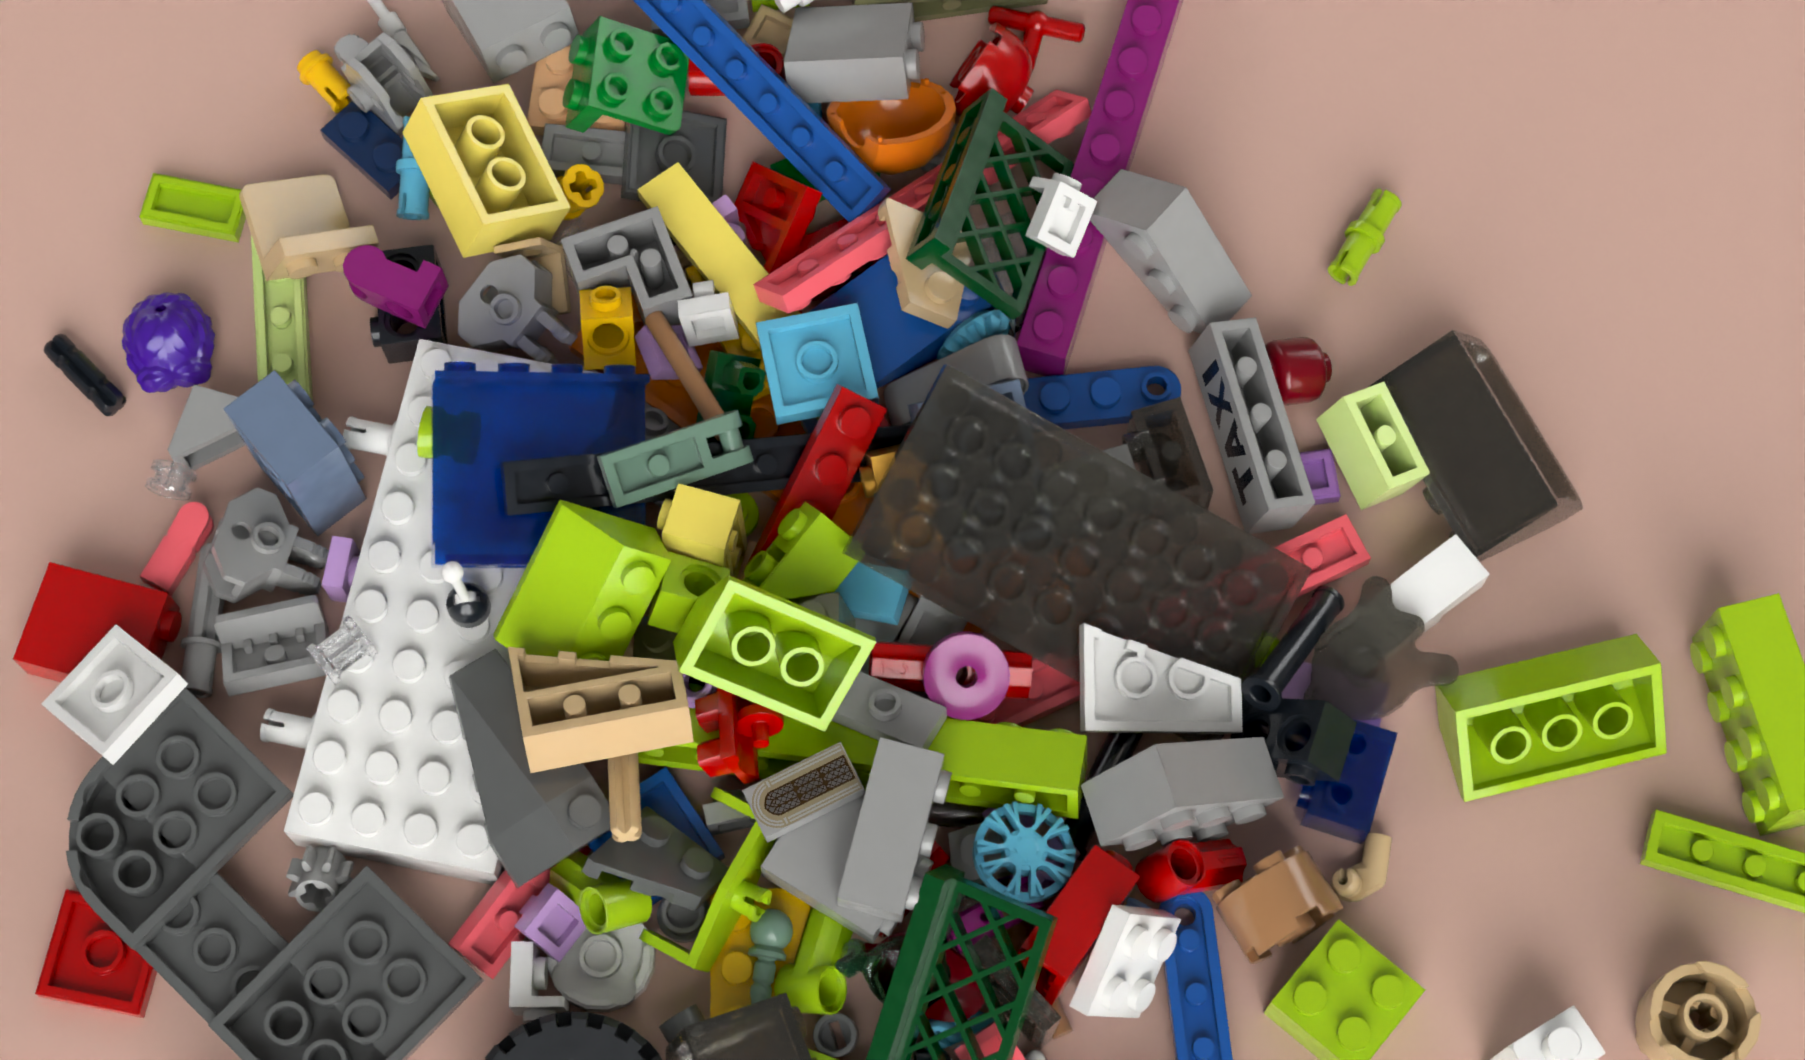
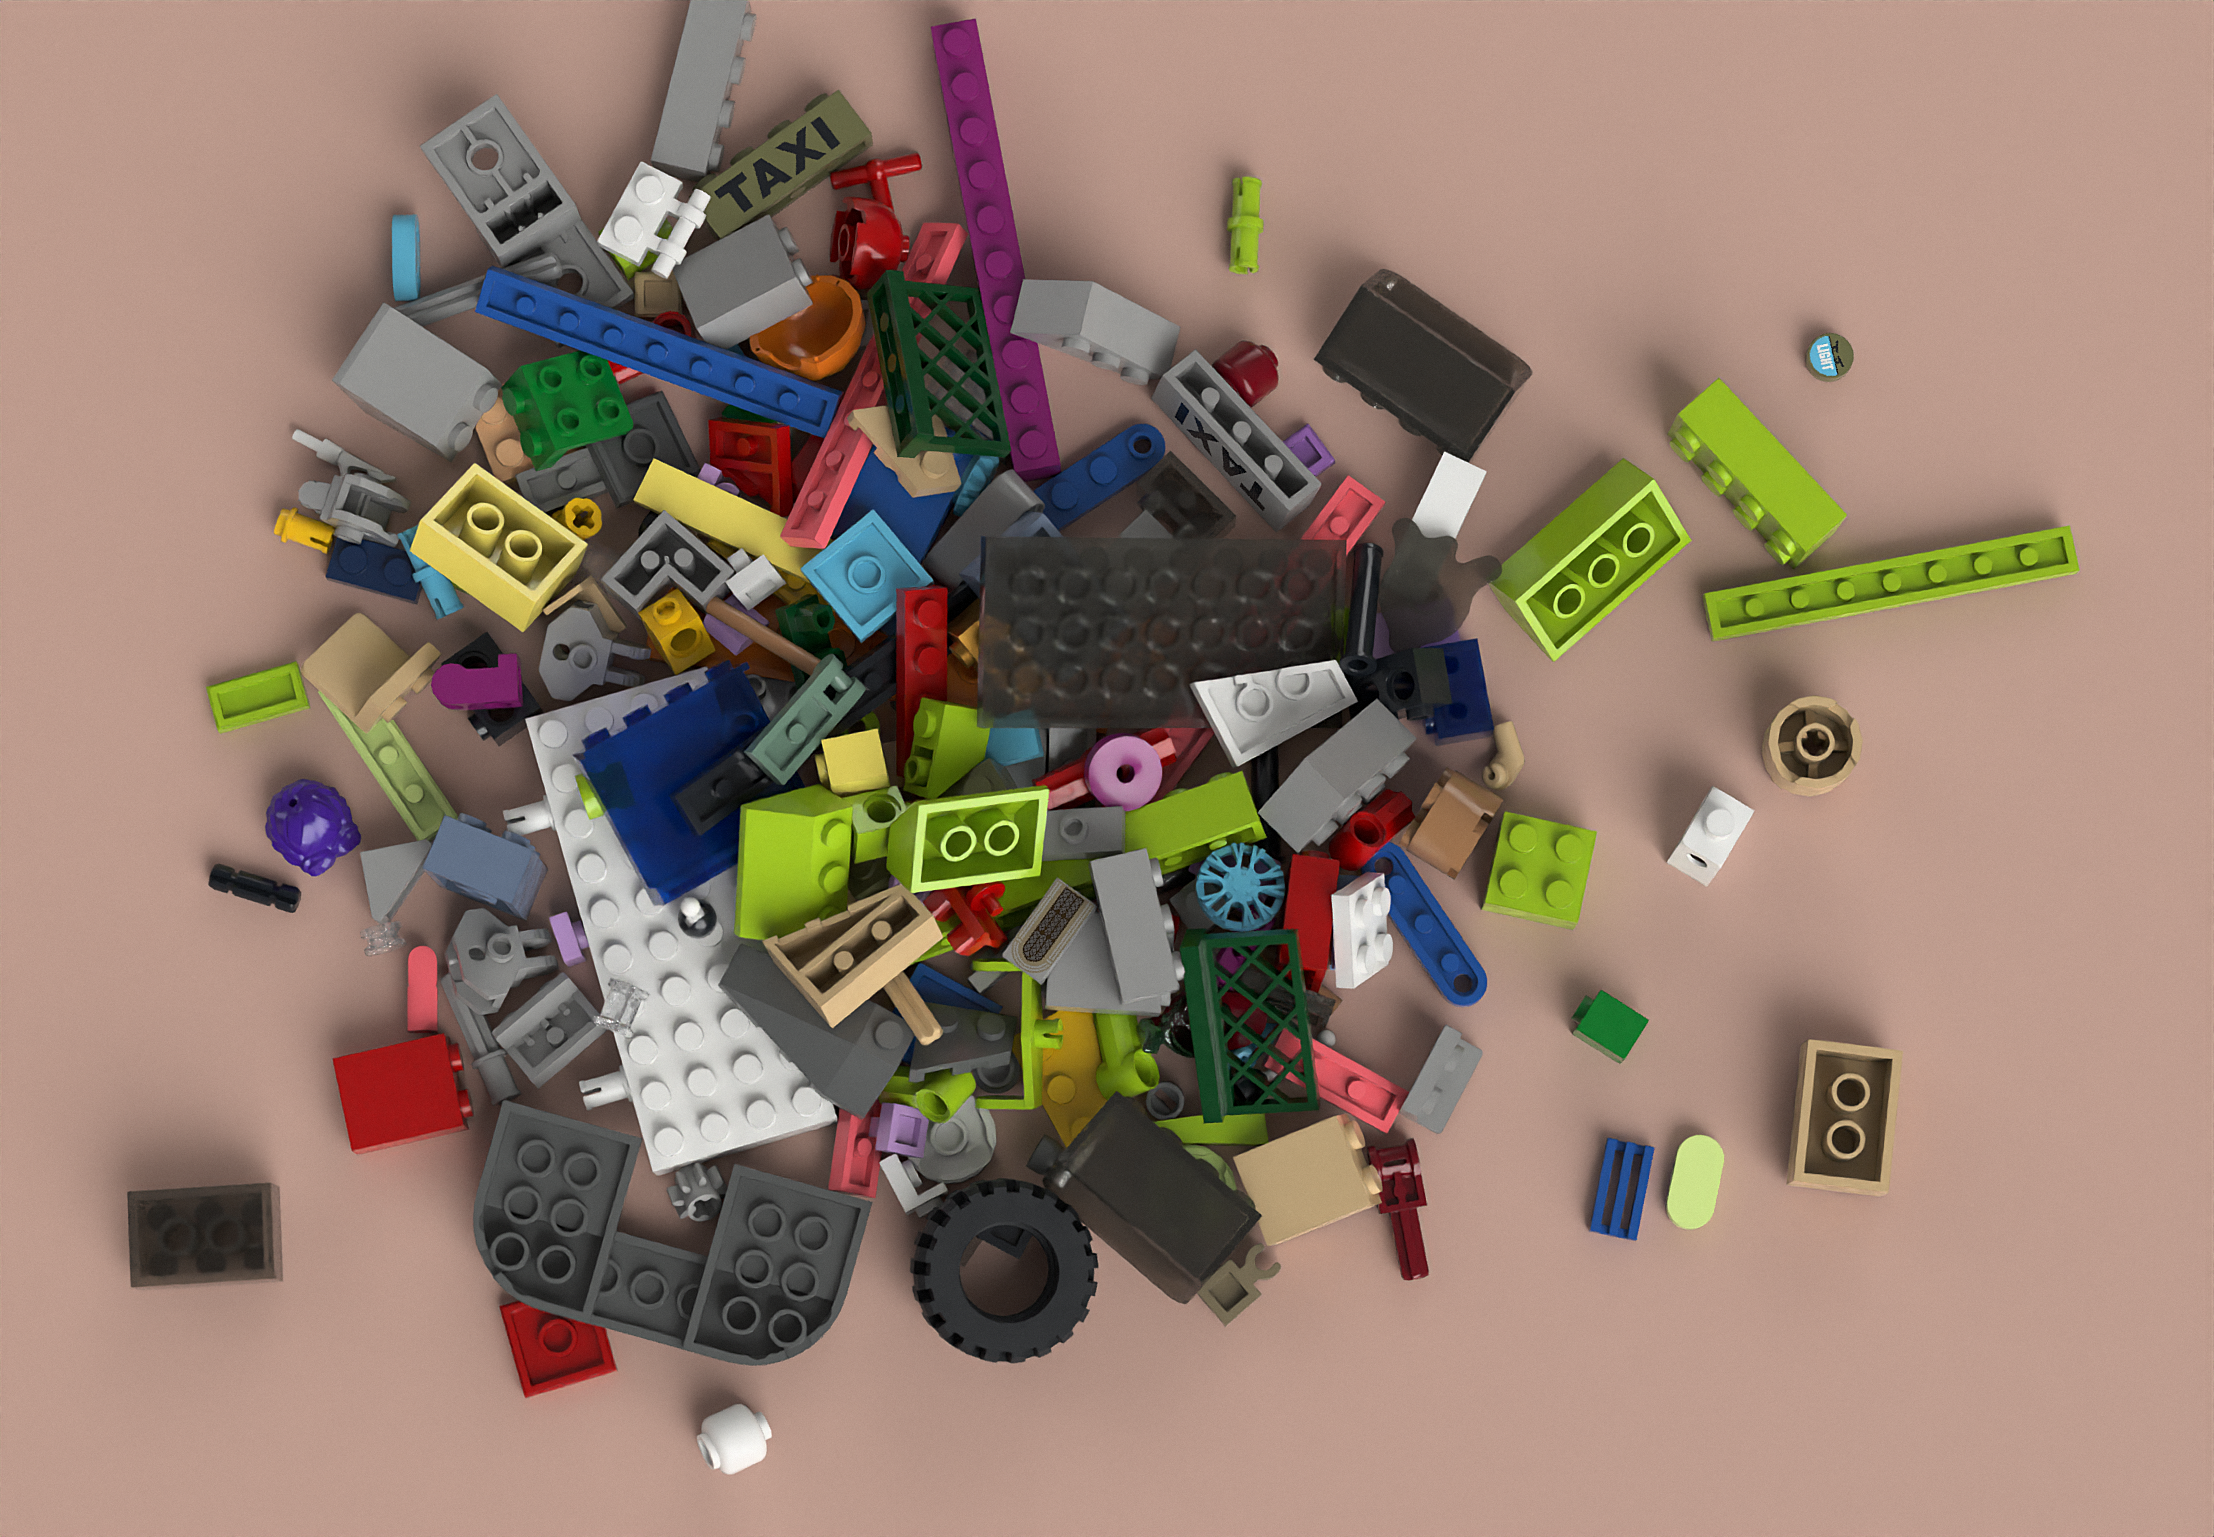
camera: 30 degrees left, 10 degrees up
(114, 694) = (459, 1136): white plate -> none
(770, 936) = (1076, 1054): sand green bar -> none
(1060, 214) = (997, 347): white bracket -> none
(1372, 445) = (1342, 408): yellowish green brick -> none

